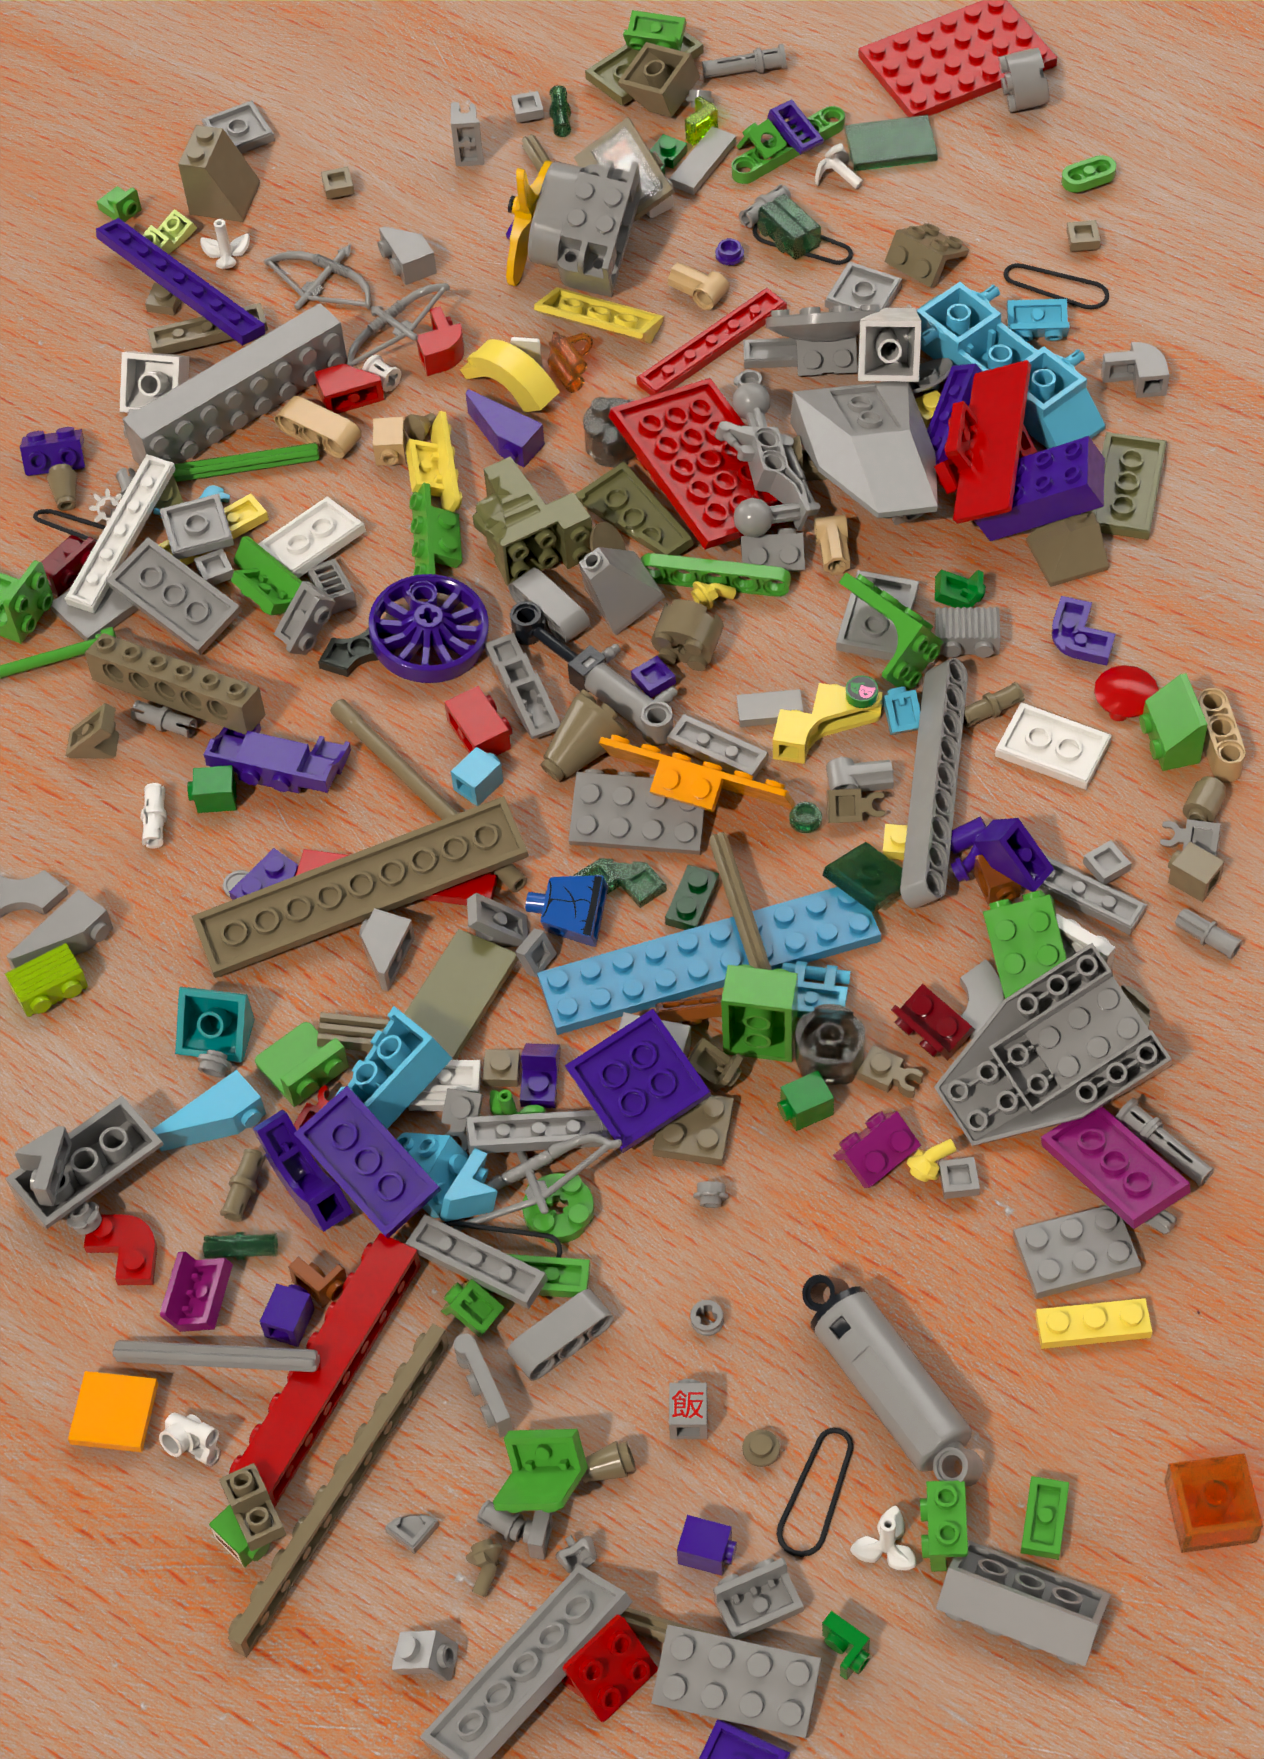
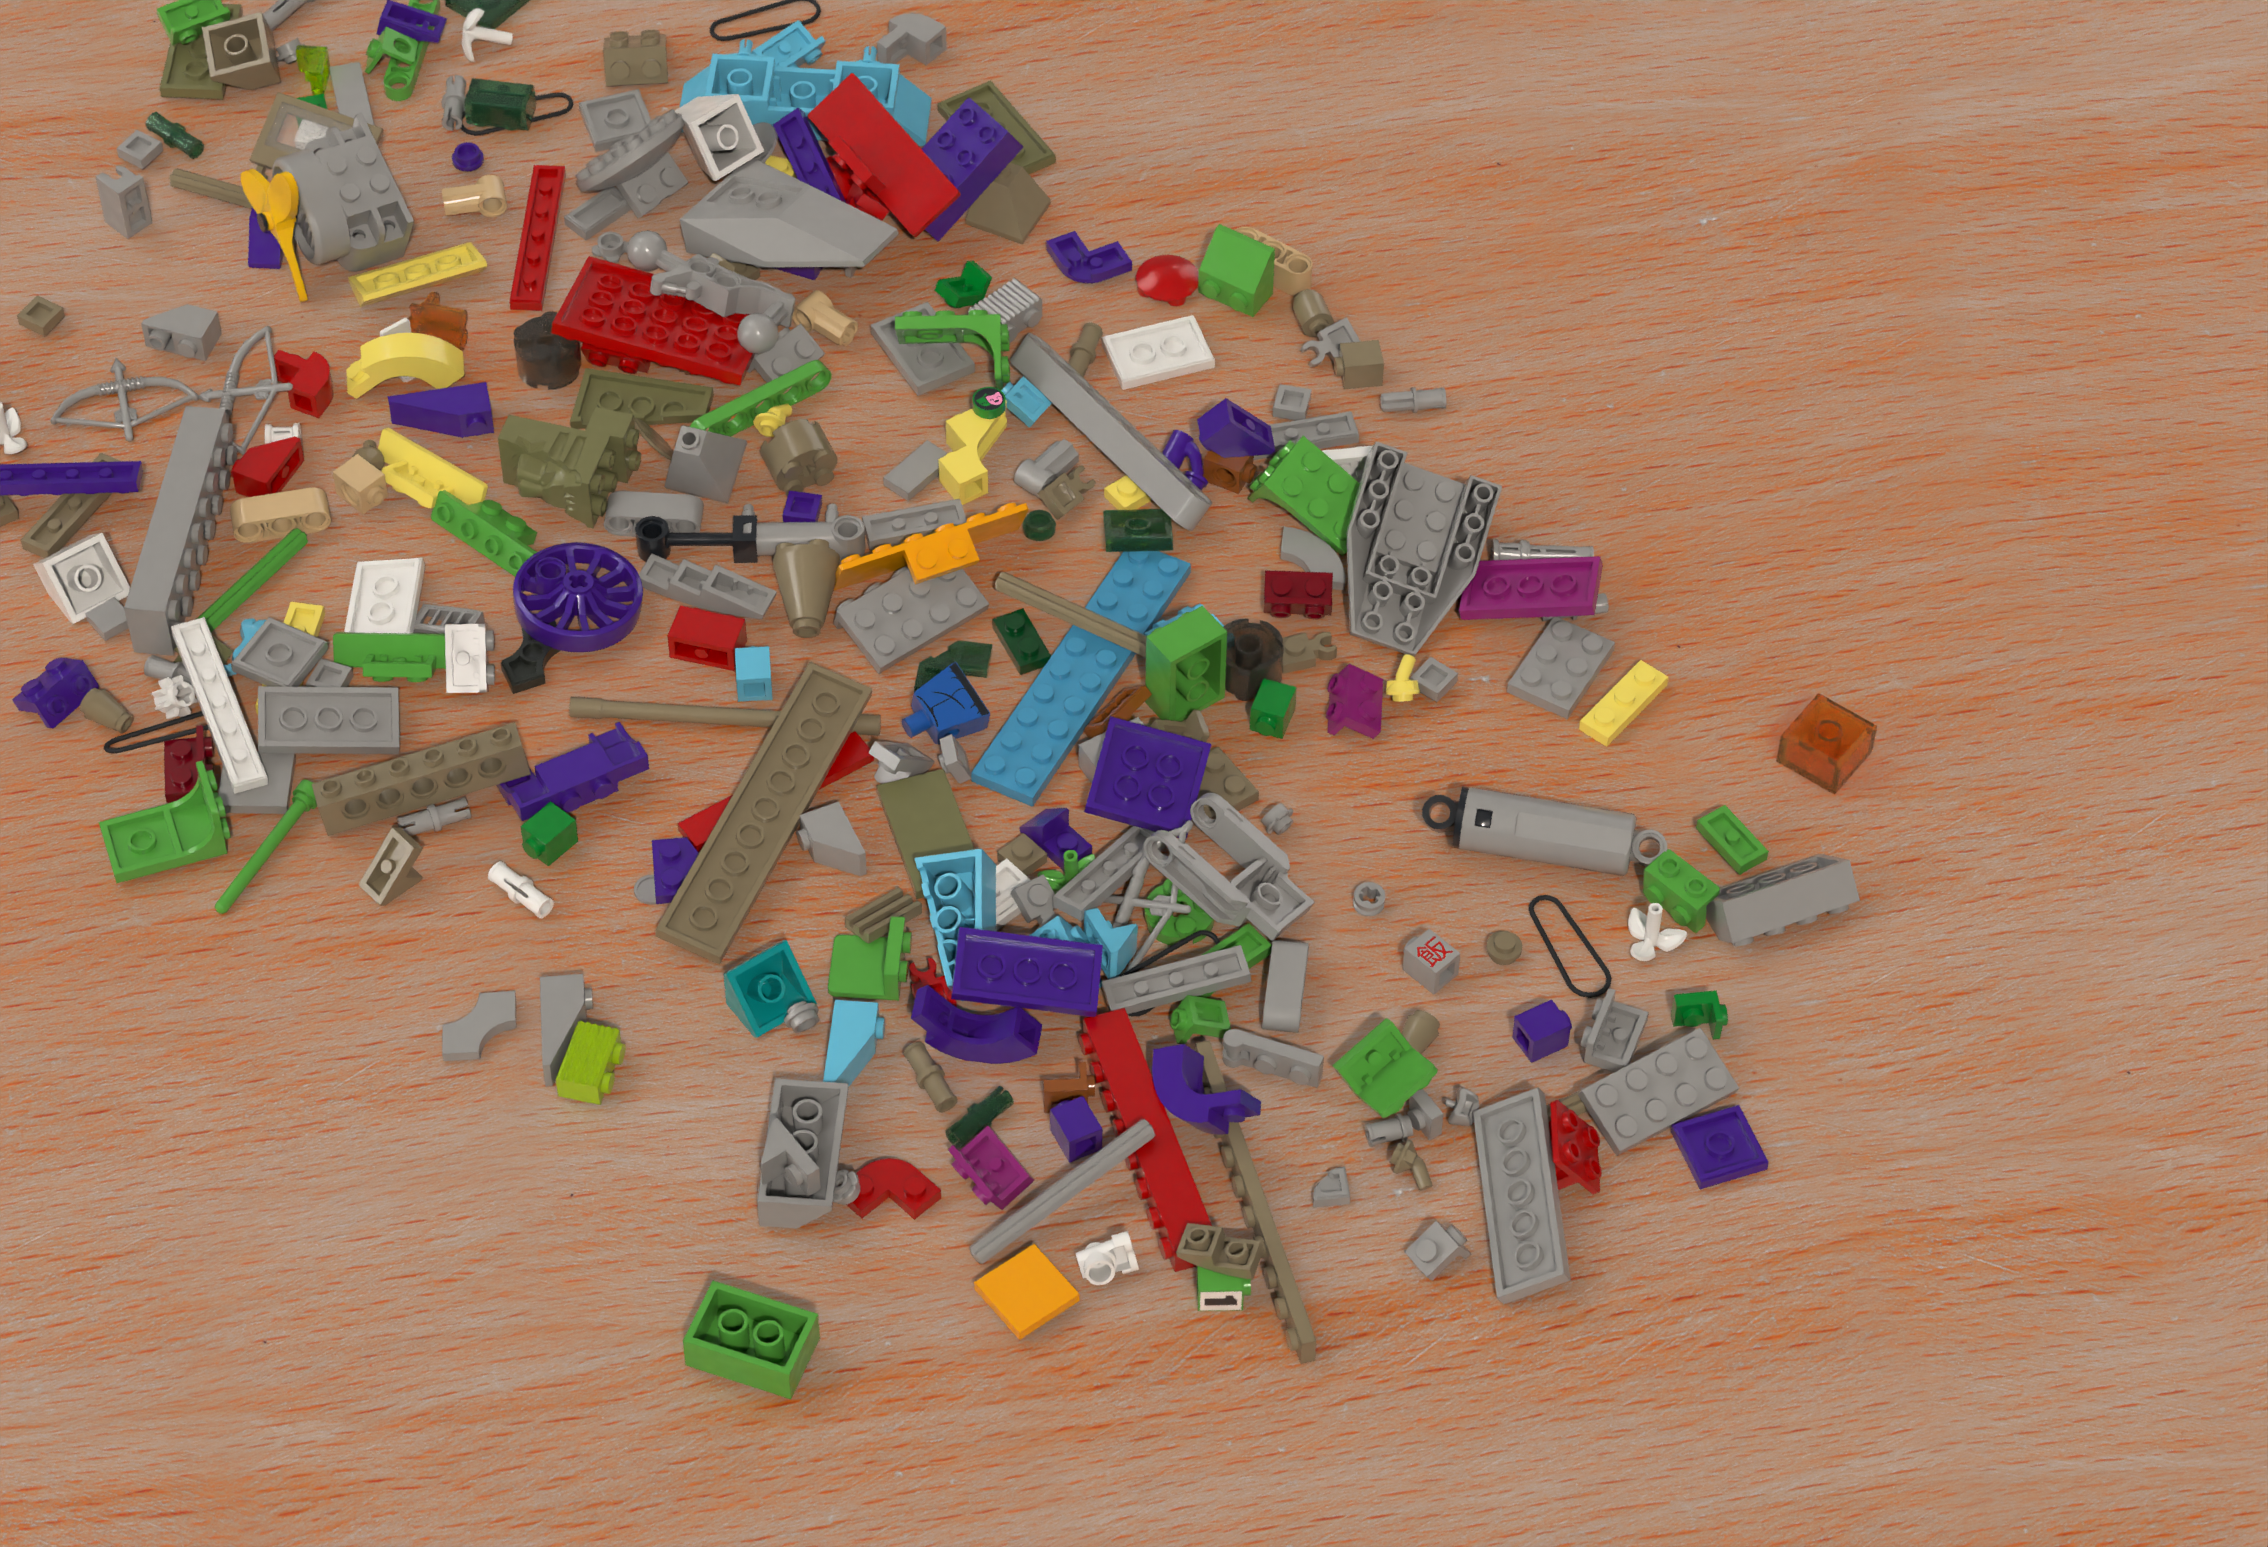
camera: 50 degrees left, 5 degrees down
(375, 1360) = (1179, 1086): none -> dark purple arch
(614, 1247) = (1256, 894): none -> light grey plate

